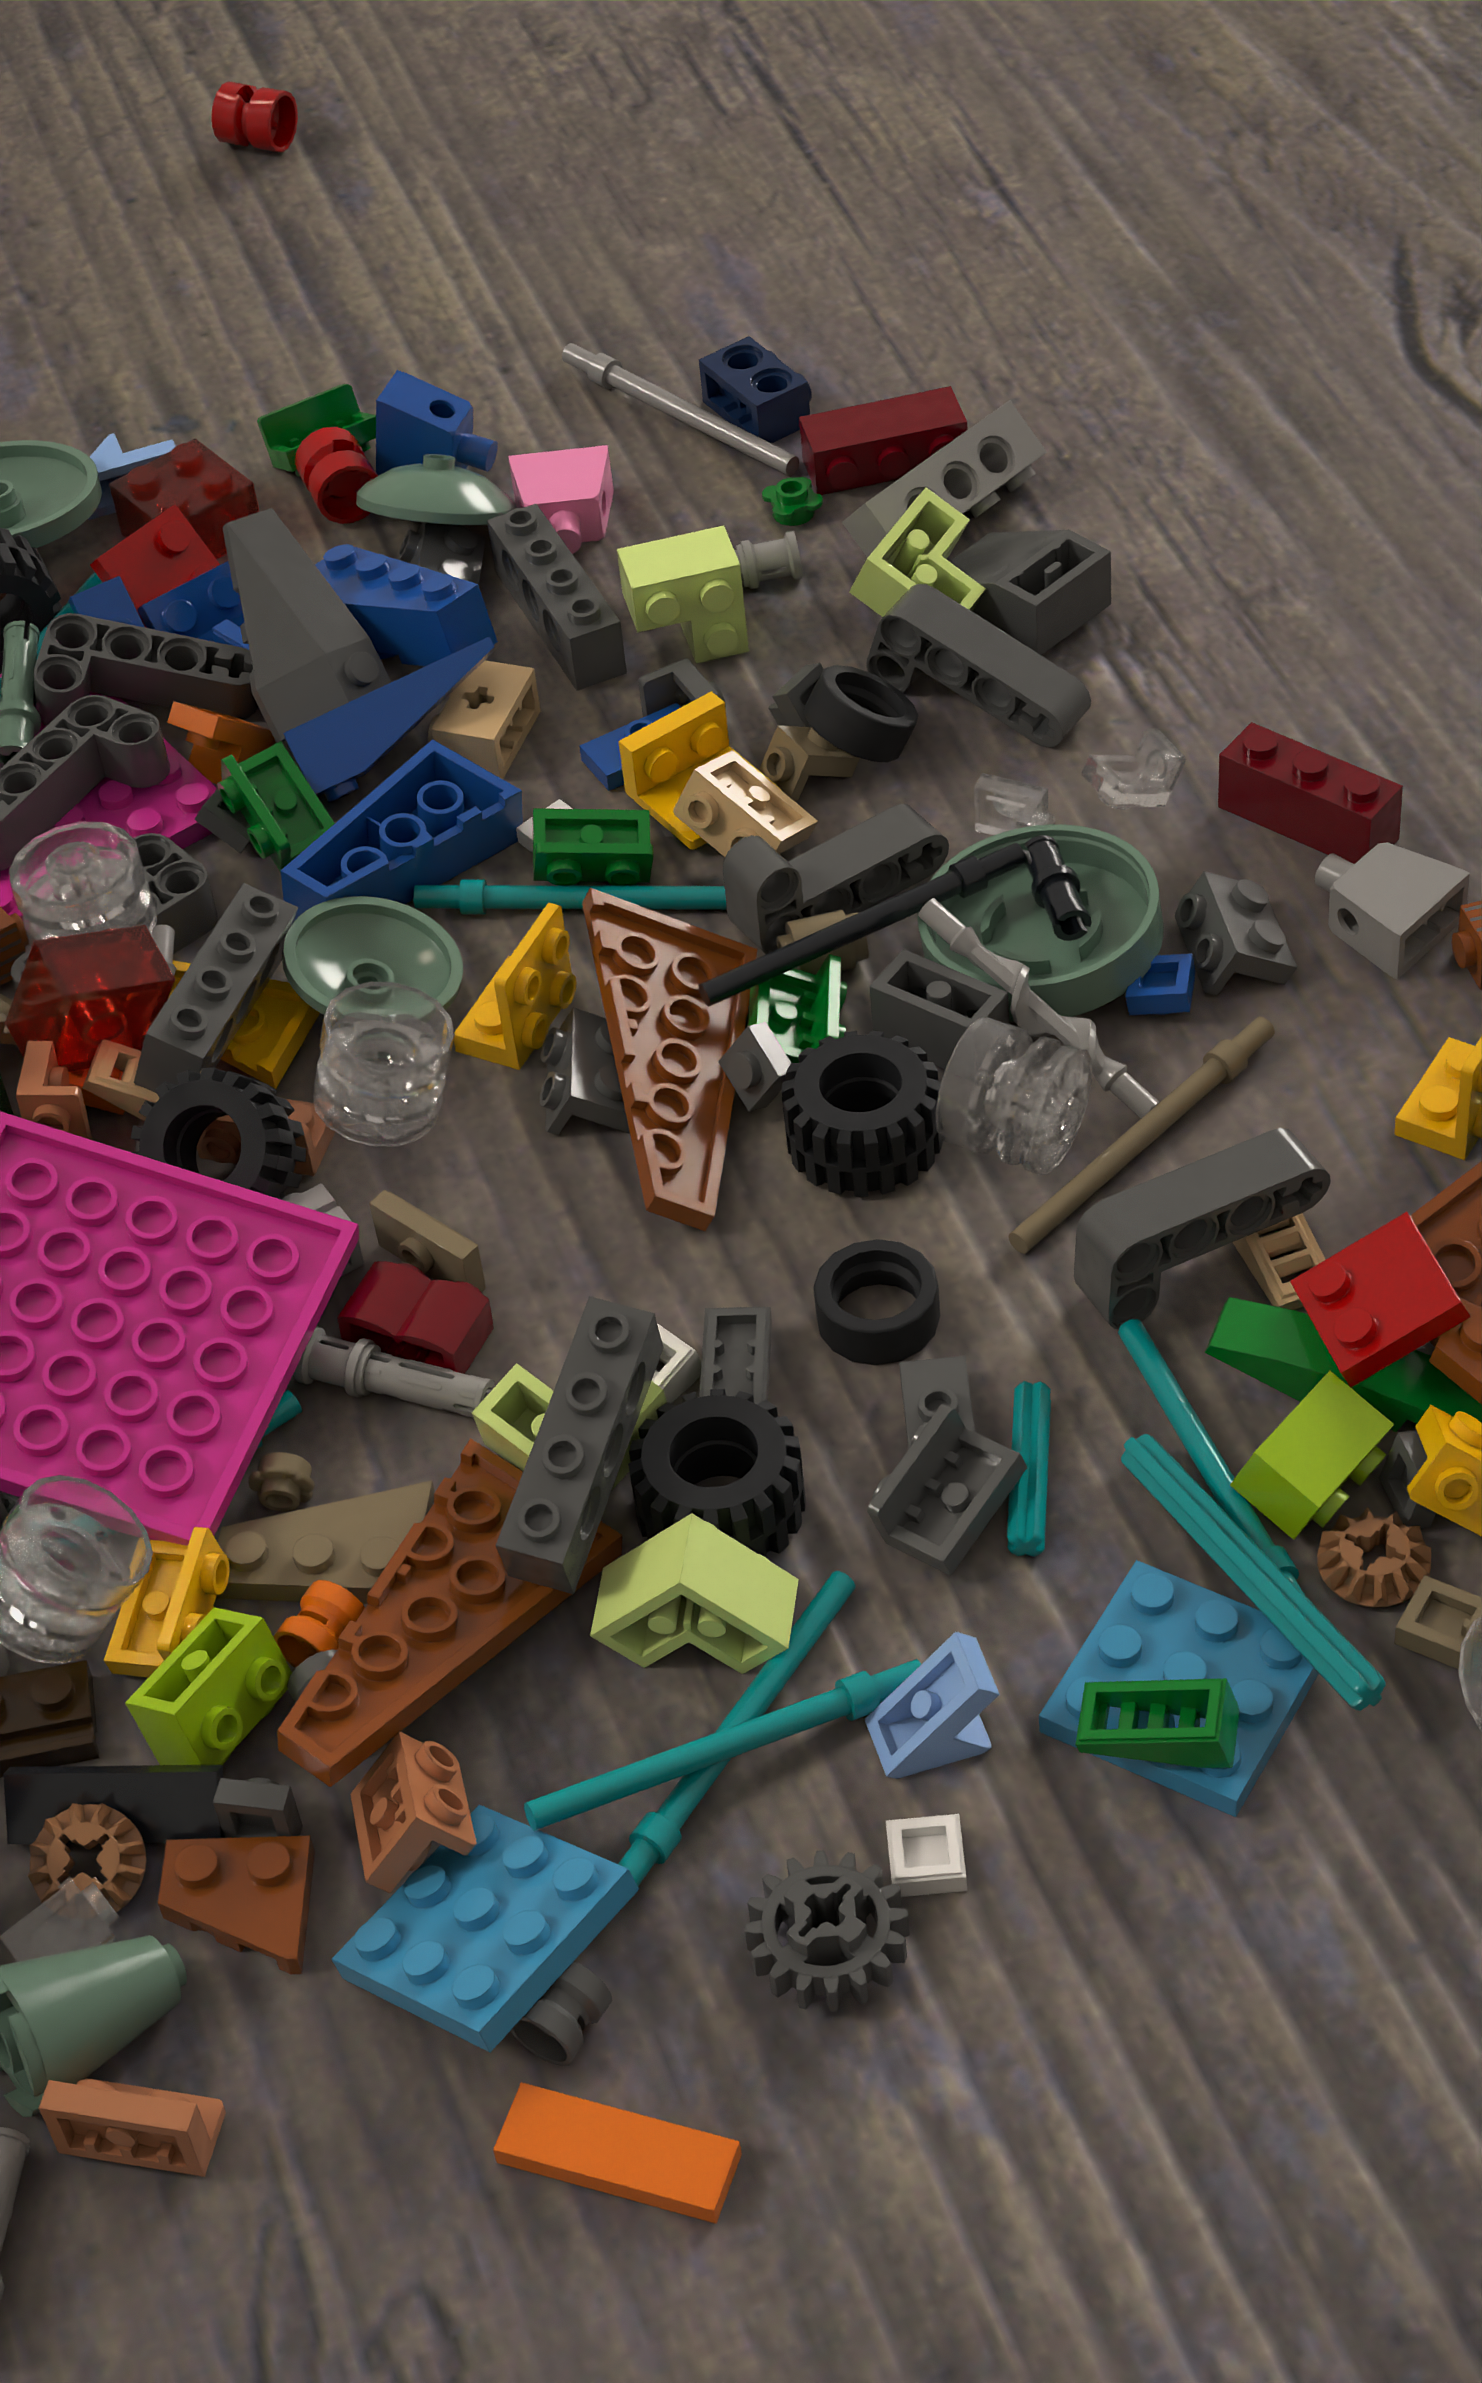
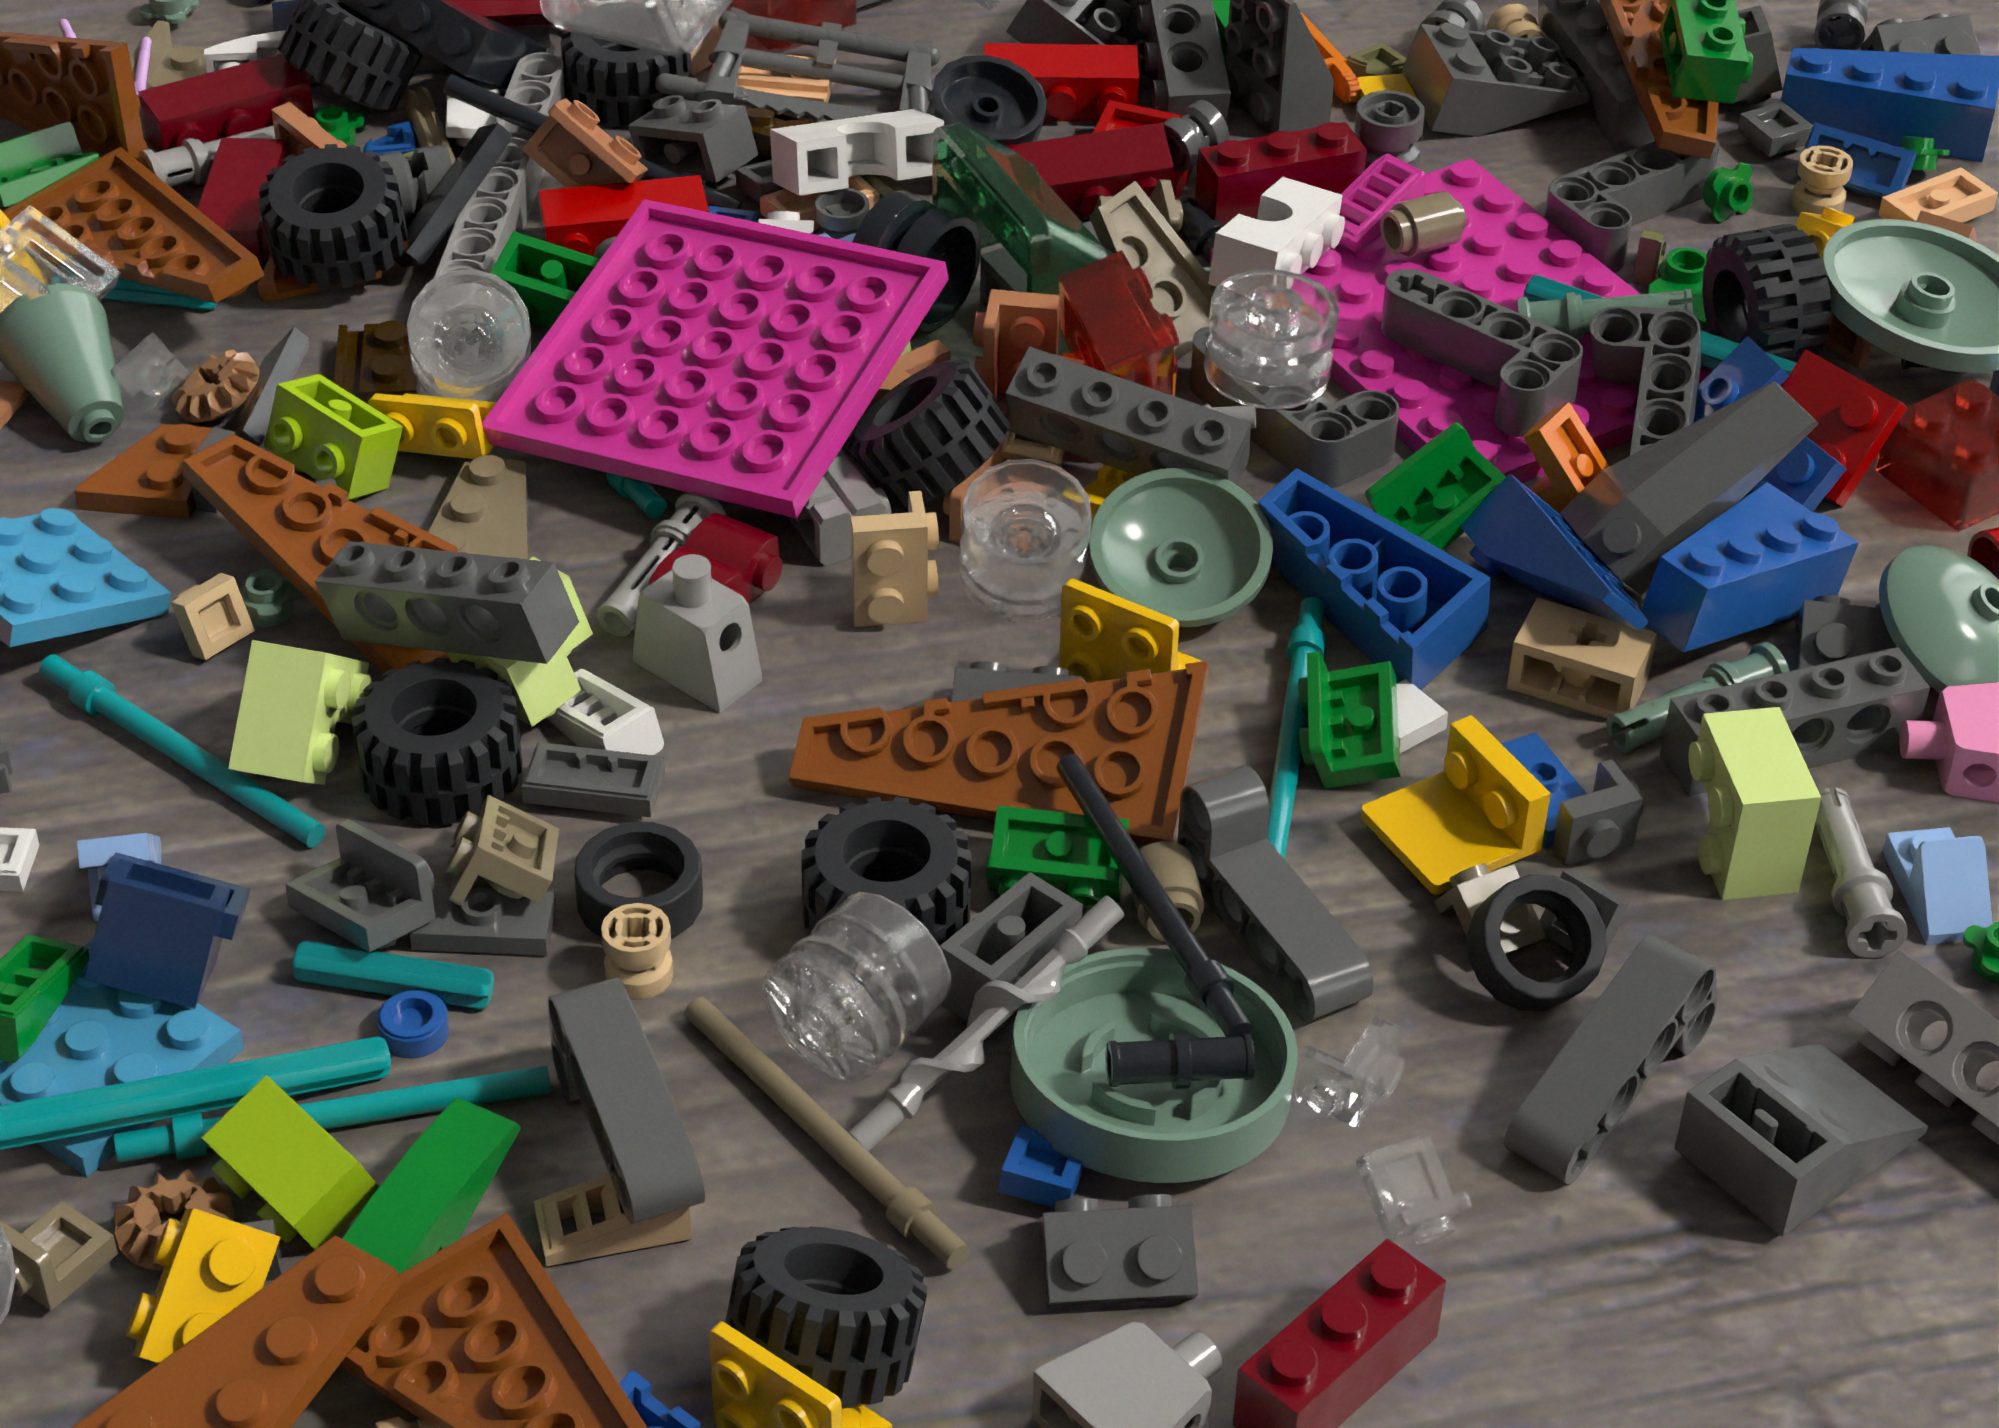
camera: 90 degrees right, 5 degrees down
(282, 1481) = (562, 496): dark tan plate -> none
(322, 1618) = (399, 501): orange wheel -> none
(404, 1804) = (162, 541): nougat bracket -> none
(413, 1152) = (893, 565): none -> tan bracket
(425, 1241) = (803, 587): dark tan plate -> none
(477, 1731) = (268, 598): none -> sand green plate
(518, 648) = (1650, 717): none -> sand green pin
(522, 1750) = (212, 616): none -> tan tile
(529, 1303) = (697, 635): none -> light grey torso
(734, 800) = (1383, 837): tan bracket -> none
(737, 513) = (1941, 881): none -> light blue slope
(756, 1066) = (969, 801): dark grey plate -> none
(852, 1697) = (174, 818): teal bar -> none
(875, 1398) = (506, 849): none -> dark tan bracket
(917, 554) = (1779, 988): yellowish green brick -> none
(973, 1279) = (638, 949): none -> tan wheel
(1055, 1610) = (161, 929): none -> dark blue plate
(1084, 1443) = (413, 1023): none -> blue tile
(1379, 1299) = (424, 1204): red plate -> none
(1386, 1057) = (831, 1308): none -> black tyre

